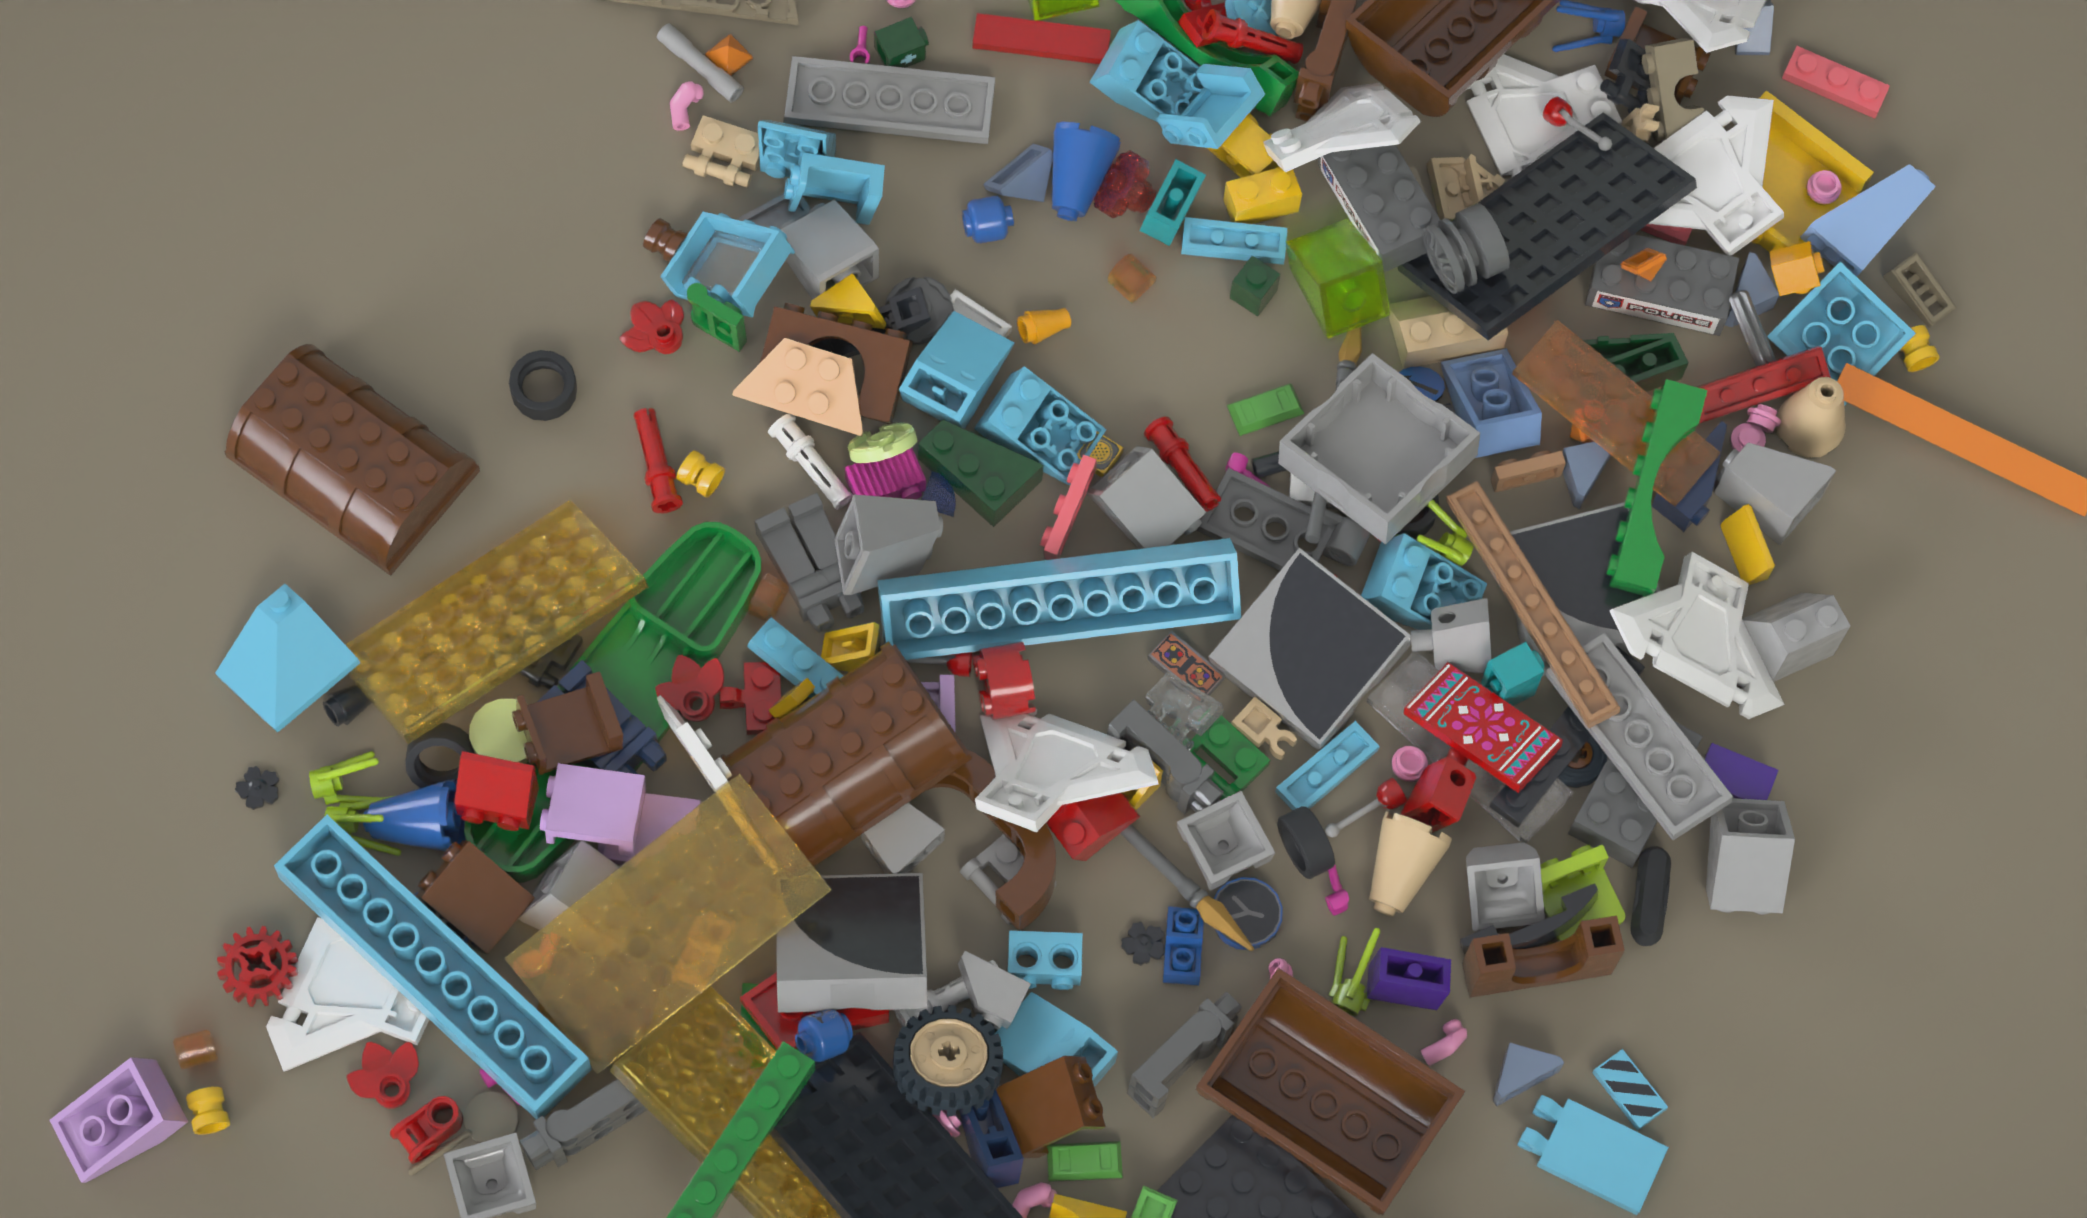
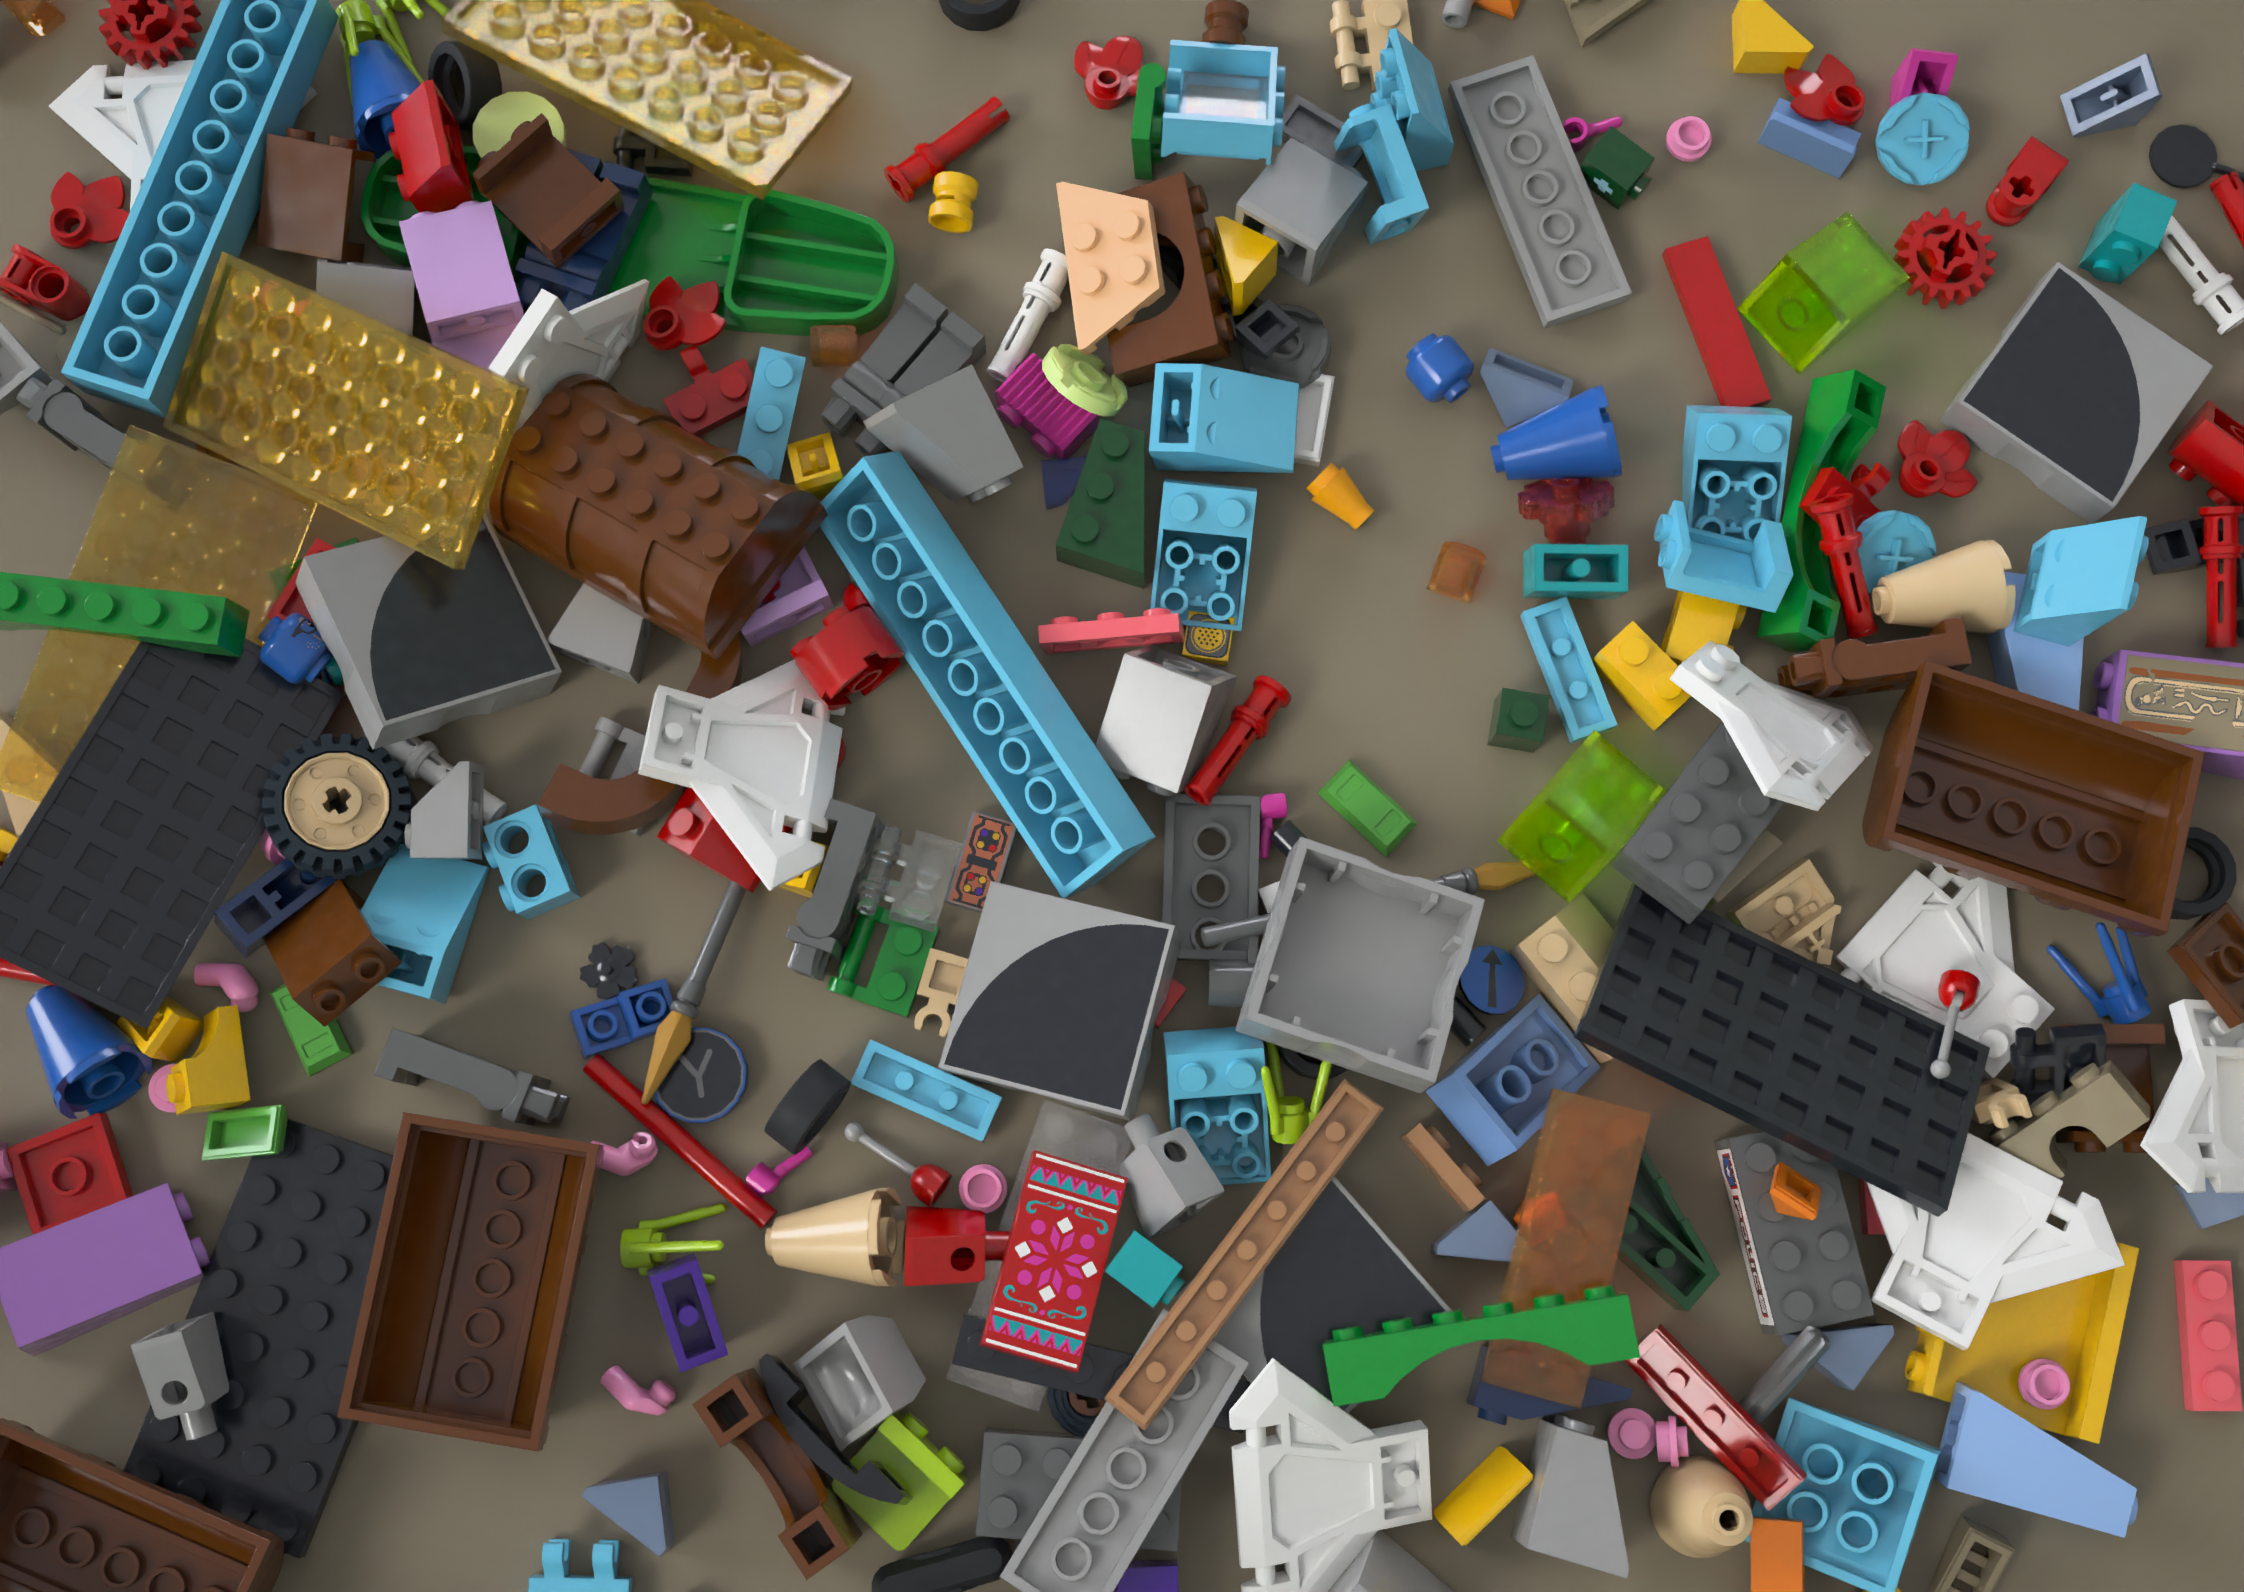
camera: 70 degrees right, 10 degrees up
(792, 698) = (715, 428): yellow tile -> none
(1225, 839) = (756, 1006): light grey brick -> none
(1285, 945) = (680, 1142): none -> red piece
(1466, 248) = (1682, 951): dark grey wheel -> none
(1796, 268) = (1898, 1398): light orange brick -> none

